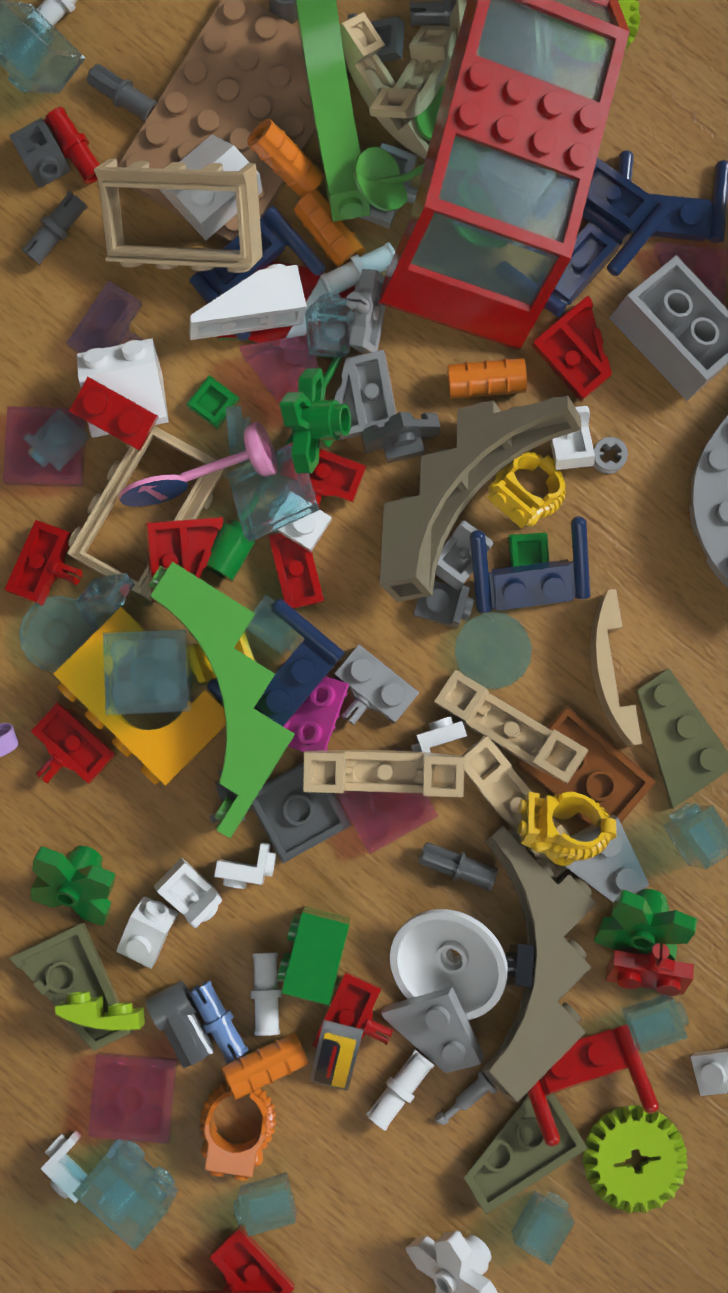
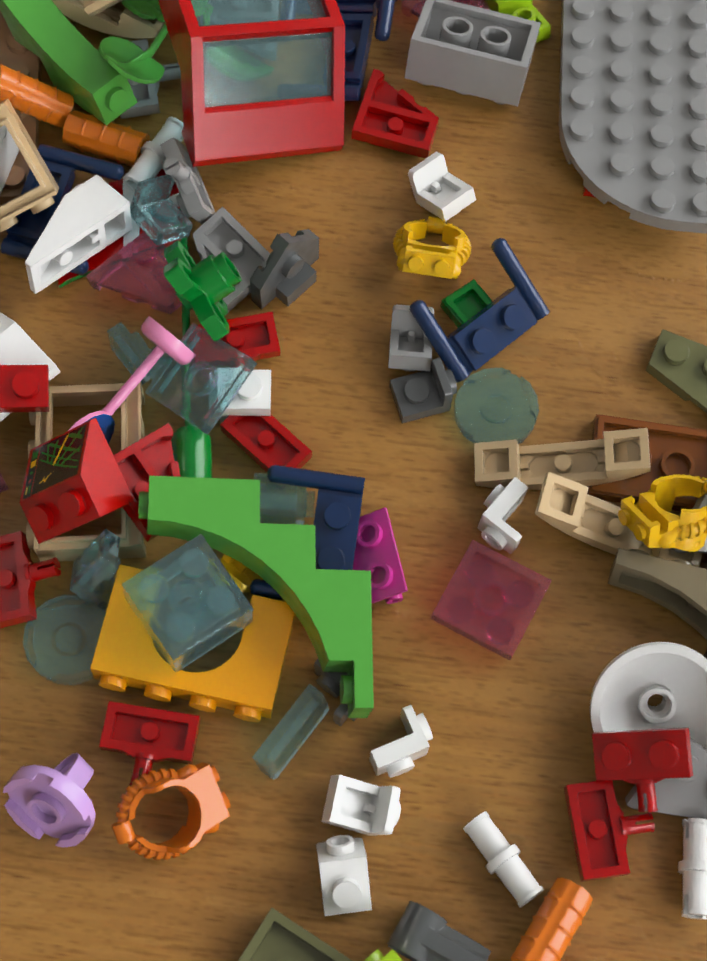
camera: 35 degrees left, 15 degrees down
(73, 882) = (239, 864): green plant -> none
(75, 828) = (205, 806): none -> orange piece
(117, 526) = (72, 482): none -> red slope
(173, 808) = (291, 732): none -> clear light blue tile
(211, 402) = (88, 343): green tile -> none
(218, 1021) = (474, 919): medium blue pin -> none
(295, 817) = (417, 661): dark grey tile -> none
(315, 955) = (527, 779): green brick -> none
(336, 1055) = (615, 869): slope -> none
(374, 687) = (411, 504): light grey plate -> none
(384, 772) = (477, 564): tan slope -> none
(409, 993) = (643, 759): none -> red plate
(451, 477) = (358, 275): dark tan arch -> none
(458, 866) = (601, 618): dark grey axle -> none
(487, 378) = (331, 182): orange axle -> none
(609, 443) = (486, 176): light grey bush -> none
(622, 719) = (653, 395): tan slope -> none

